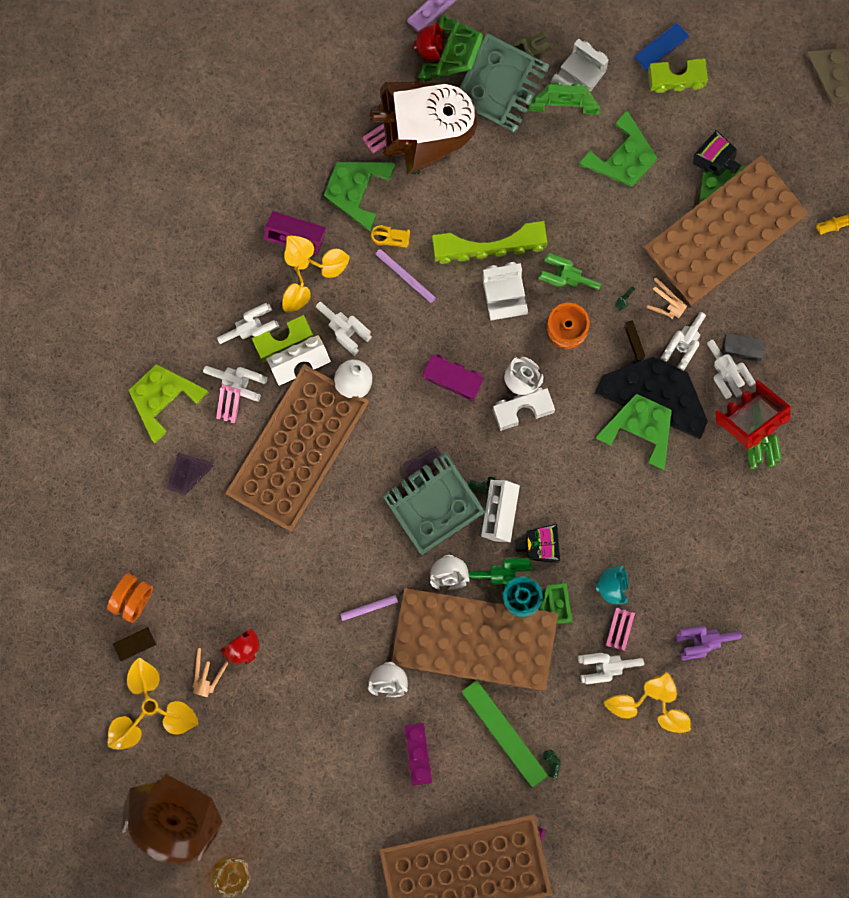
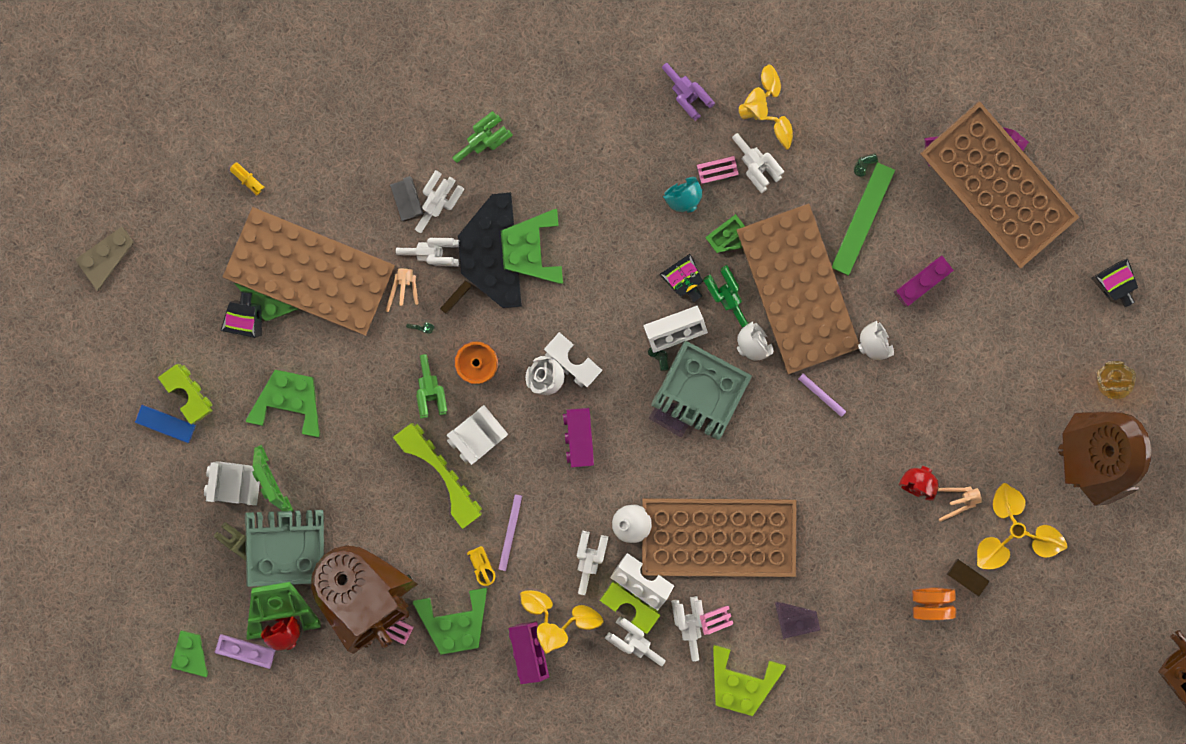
camera: 120 degrees left, 10 degrees up
(522, 596) = (742, 266): teal cylinder -> none
(754, 416) = (467, 154): red window -> none

